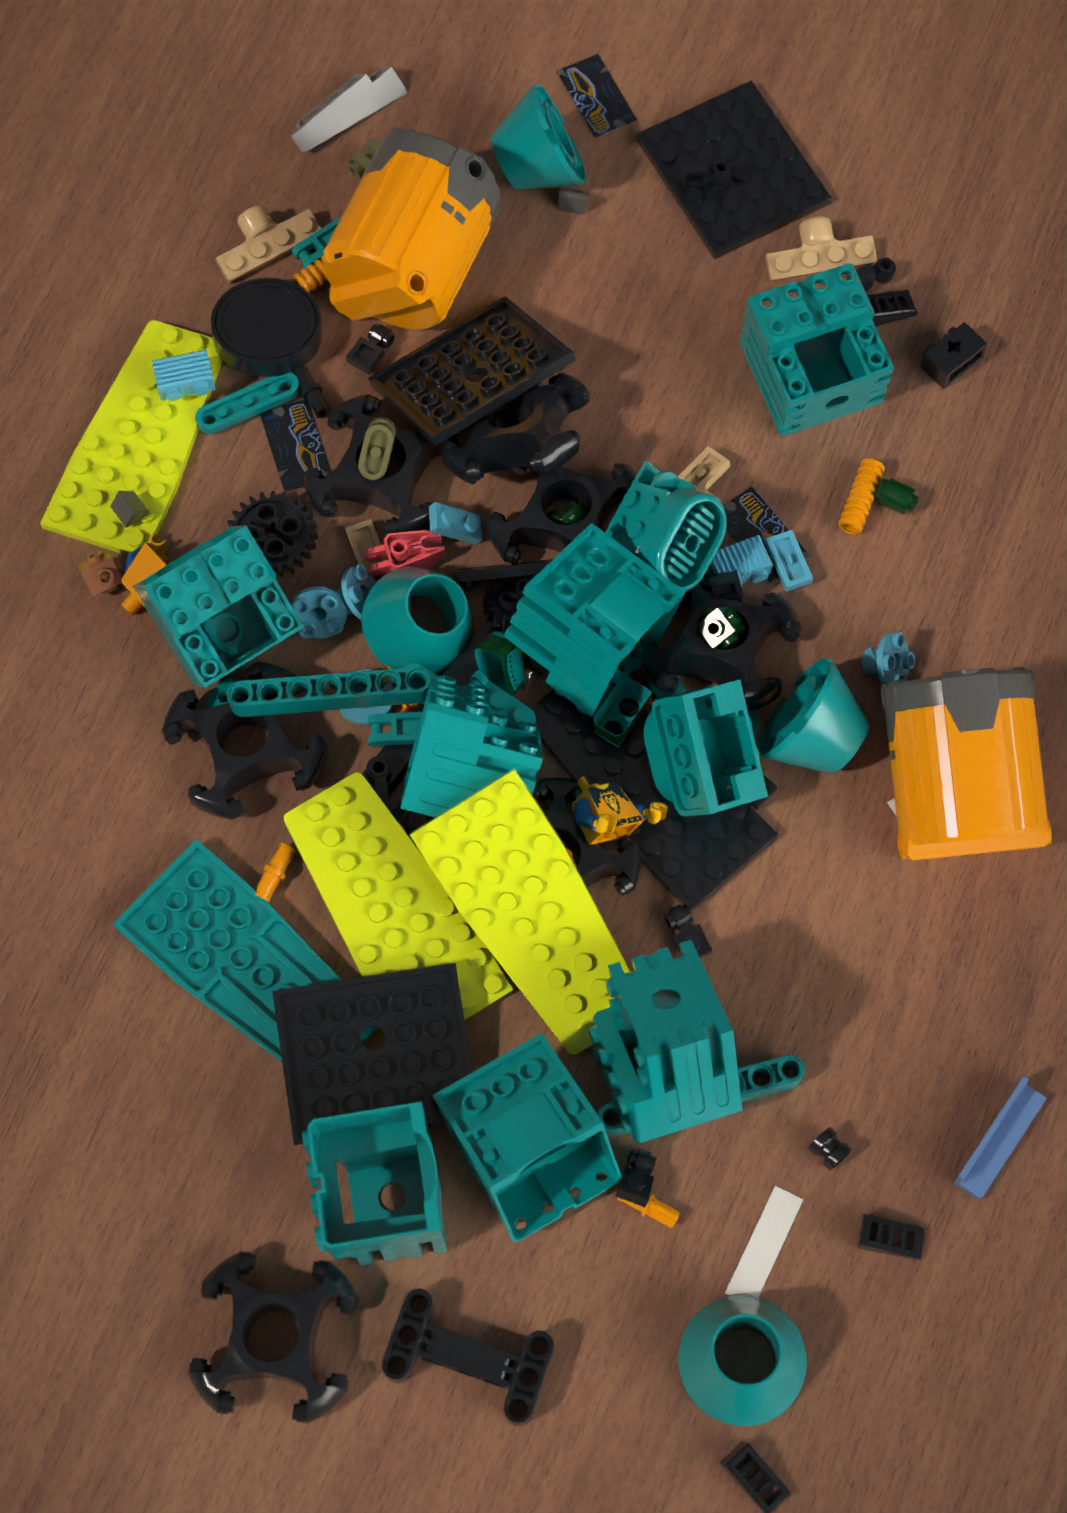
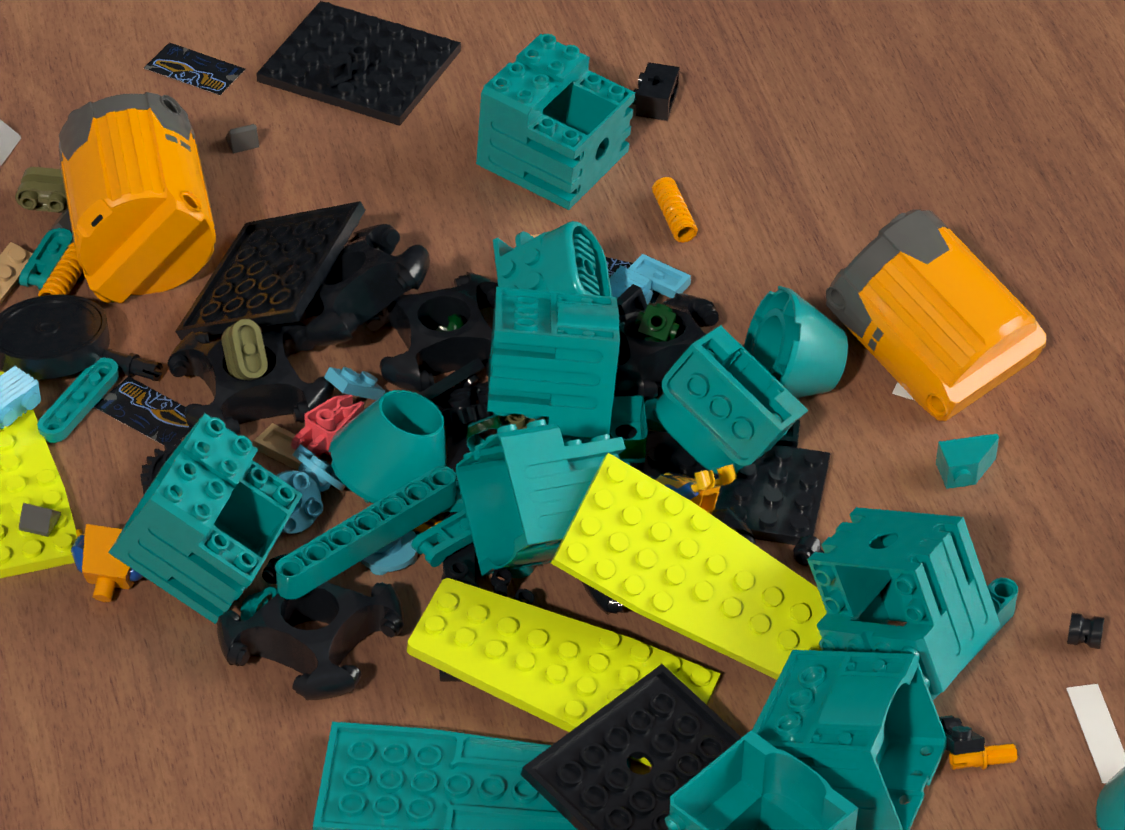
camera: 40 degrees left, 25 degrees down
(101, 572) = (53, 579): nougat brick -> none
(275, 871) = (426, 707): light orange pin -> none
(368, 353) = (158, 312): black plate -> none
(535, 145) = (207, 99): teal cone -> none
(819, 252) = (476, 72): tan plate -> none
(881, 916) = (966, 459): none -> teal slope
(890, 660) = (808, 290): medium azure plate -> none
(896, 496) = (703, 195): dark green brick -> none

